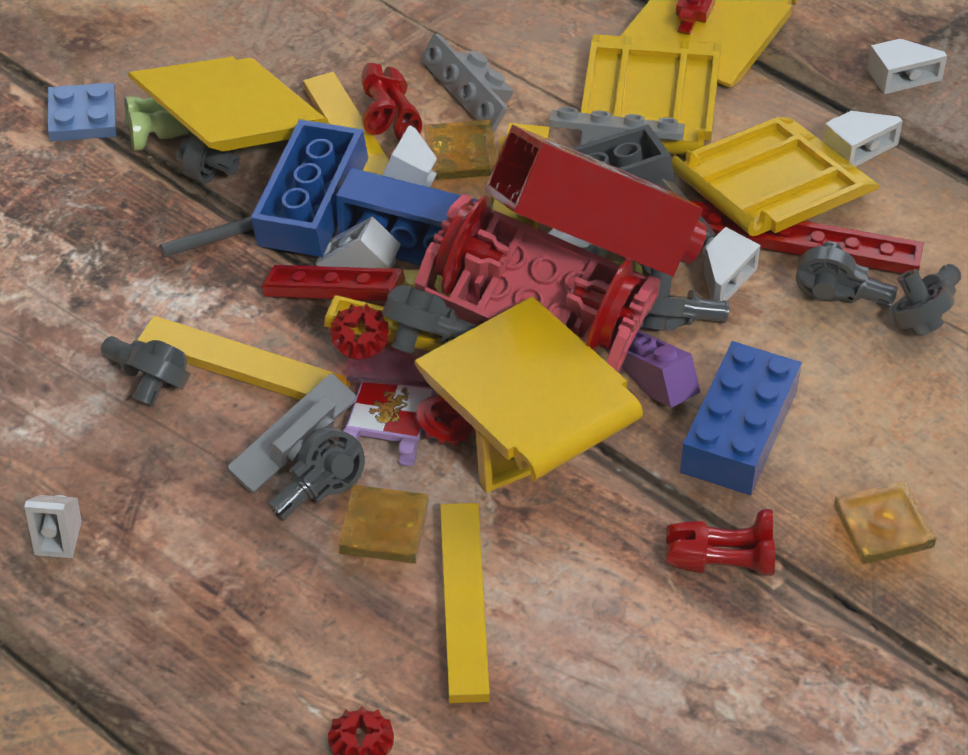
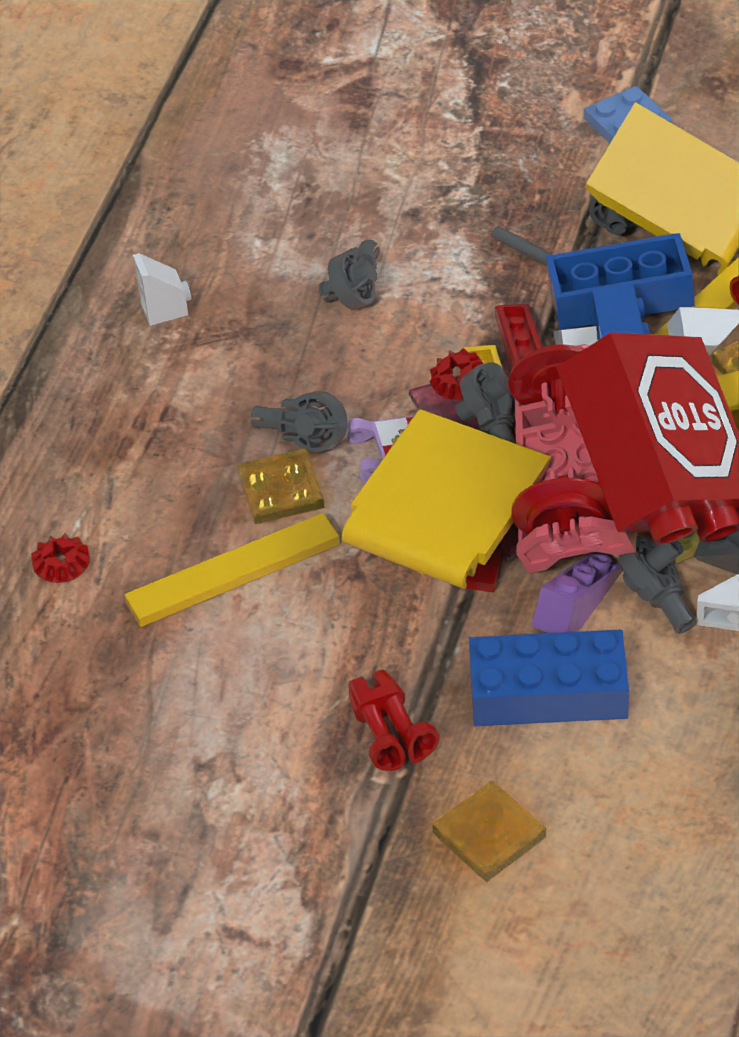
camera: 70 degrees right, 0 degrees up
(238, 359) = (406, 330): yellow tile -> none
(285, 437) = (351, 390): light grey bracket -> none

